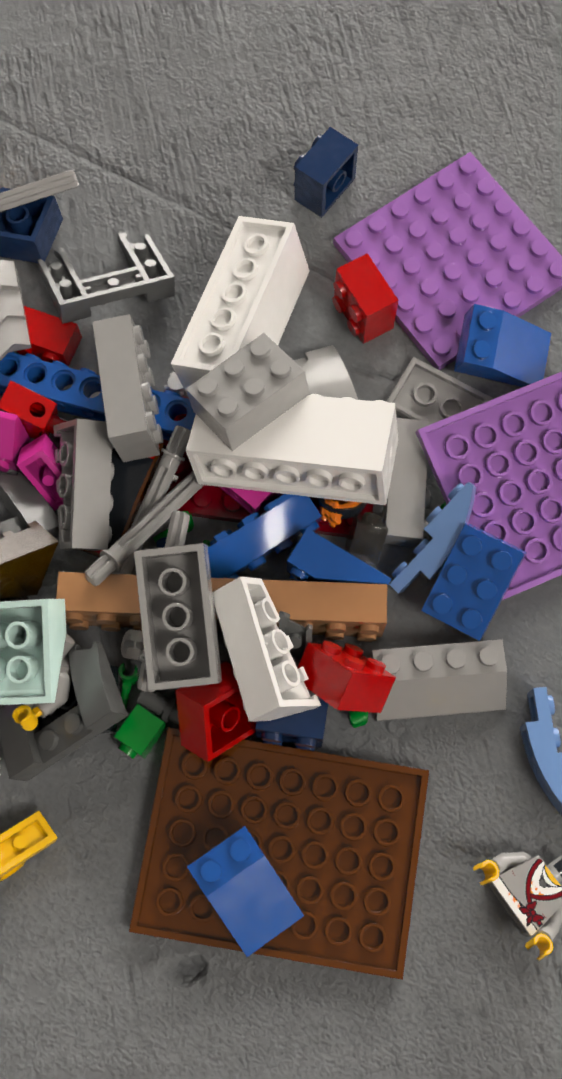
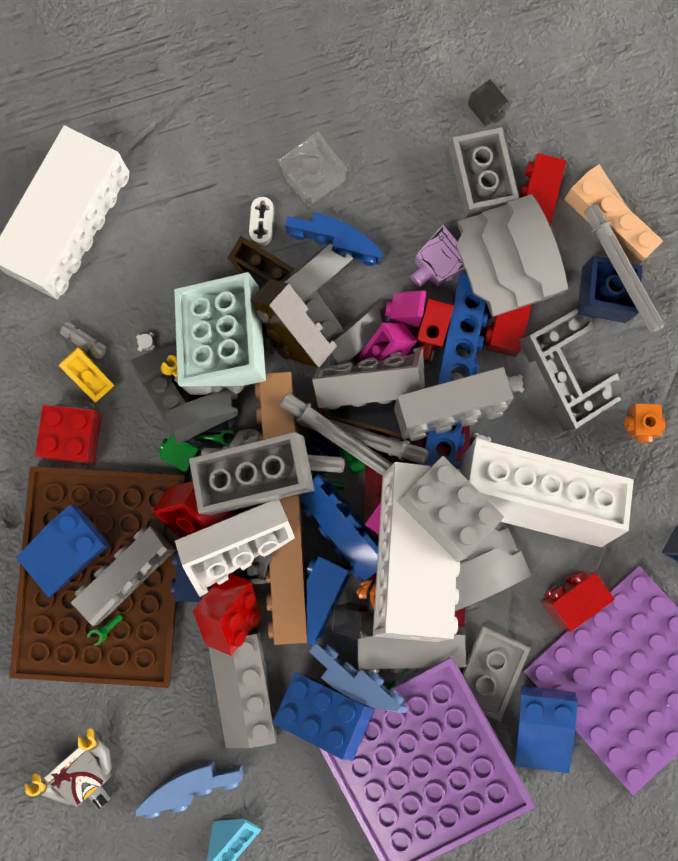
camera: 85 degrees right, 10 degrees up
(94, 875) = (68, 434): none -> red brick
(177, 210) = (644, 422): none -> orange brick
(284, 809) = (122, 576): none -> light grey wedge
(349, 841) = (102, 631): none -> green hand

